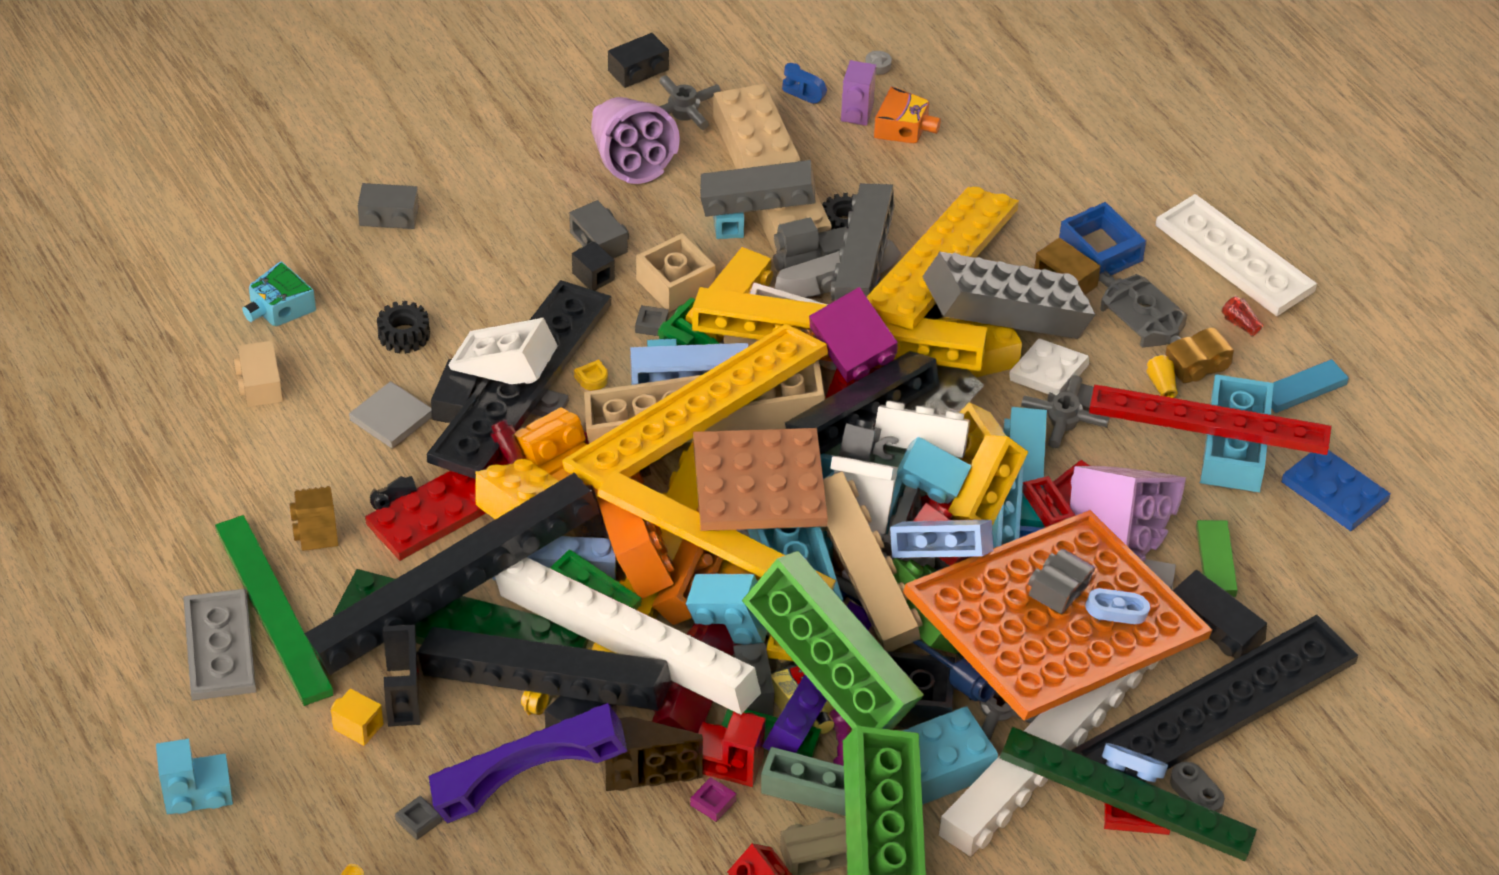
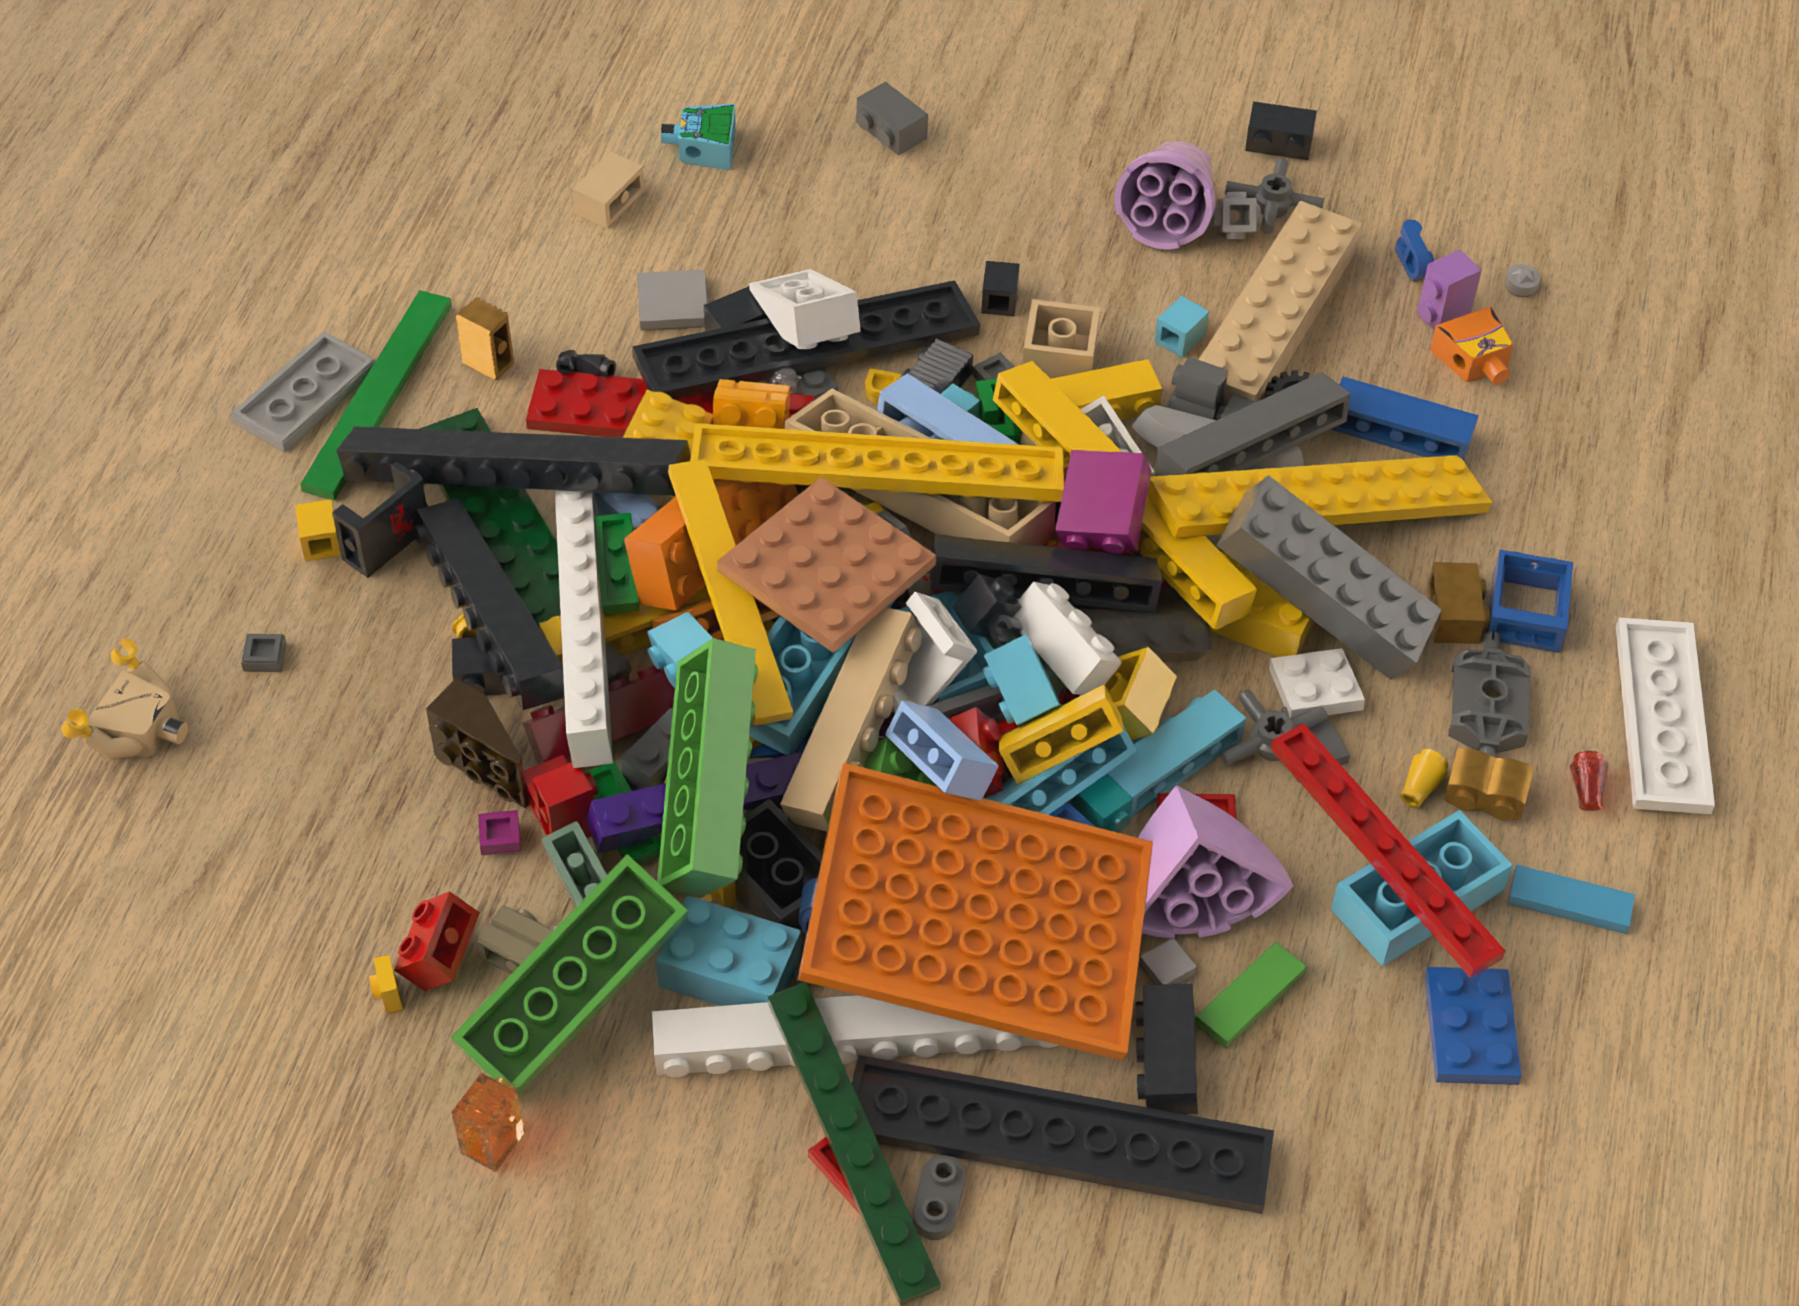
camera: 45 degrees right, 5 degrees up
(190, 781) = (128, 479): medium azure brick -> none
(403, 338) = (773, 244): black tyre -> none
(467, 785) = (318, 653): dark purple arch -> none
(505, 437) = (708, 378): dark red animal -> none
(537, 411) = (788, 377): none -> clear plate
(598, 224) = (1045, 261): dark grey brick -> none
(617, 338) = (942, 366): none -> brick
(688, 125) = (1248, 215): none -> light grey brick
(757, 188) = (1215, 311): dark grey brick -> none
(928, 184) = (1406, 421): none -> blue brick
(1043, 503) = (1136, 777): red tile -> none
(1060, 580) = (1004, 879): dark grey brick -> none
(1117, 606) = (1038, 949): light blue plate -> none
(1121, 757) = (890, 1114): light blue plate -> none

